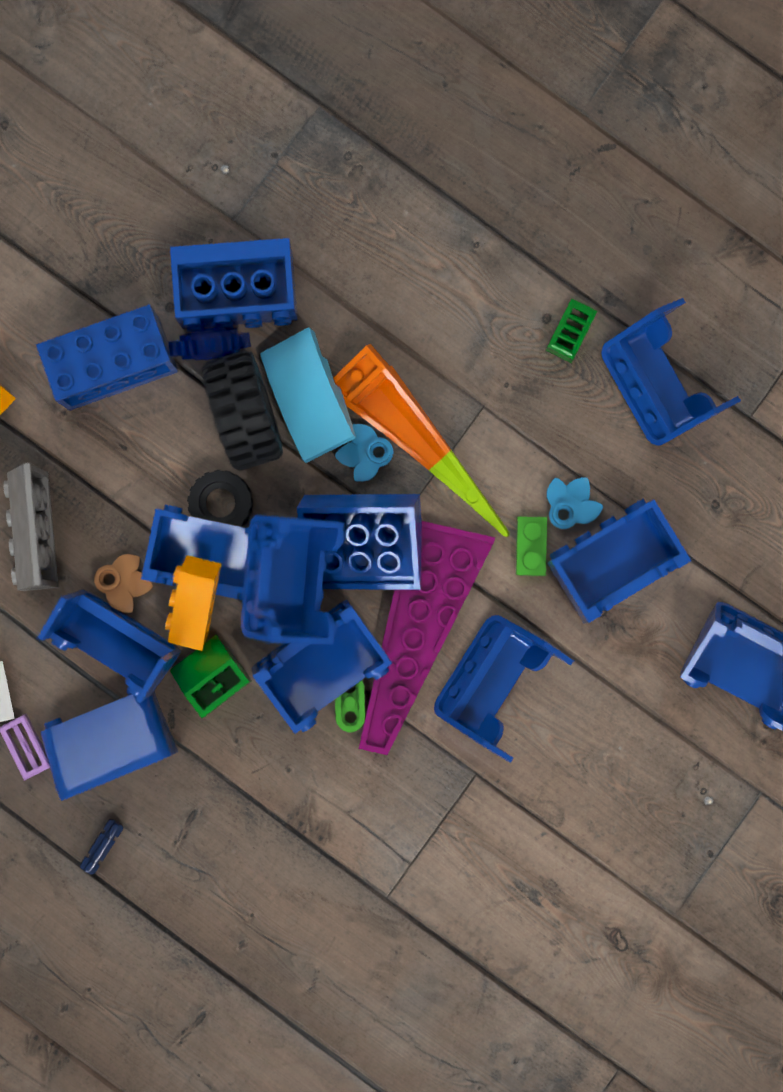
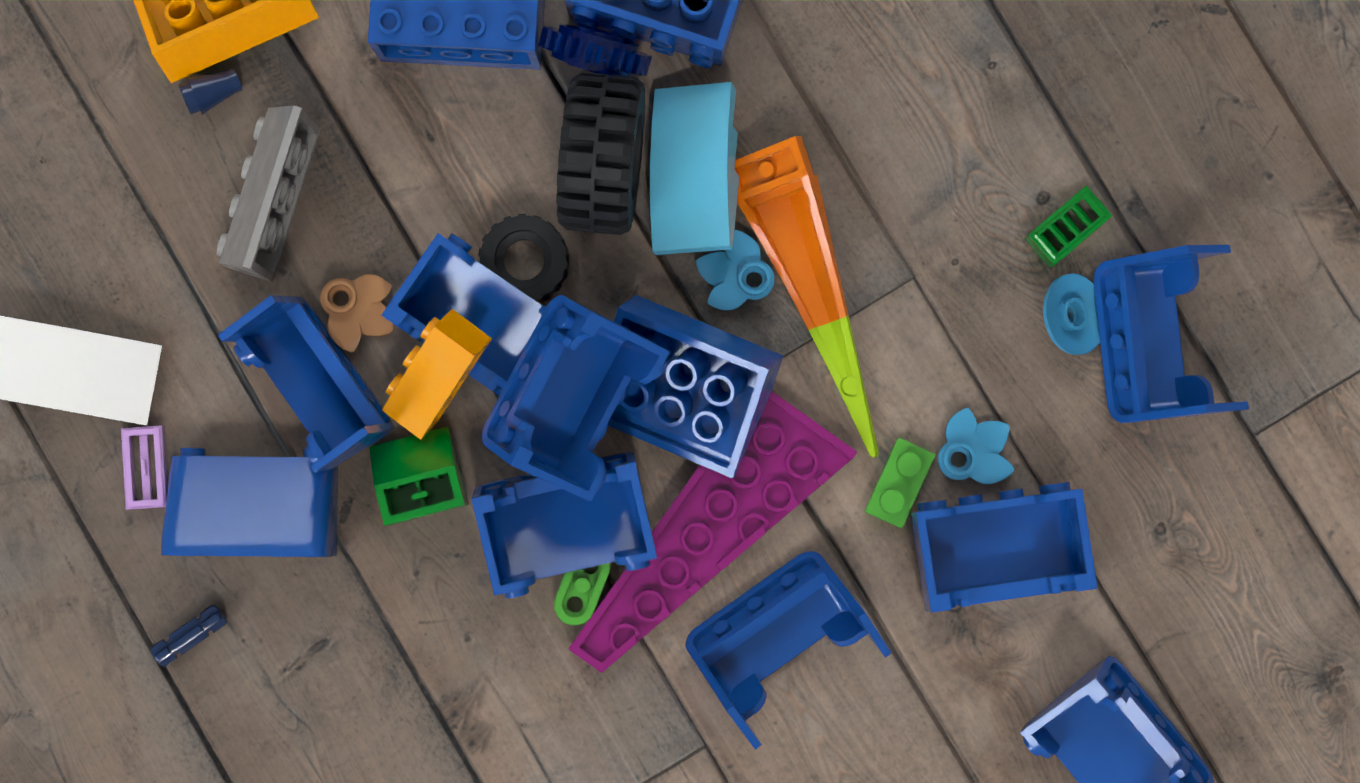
camera: 30 degrees right, 0 degrees up
(598, 387) = (1072, 314): none -> dark azure dish

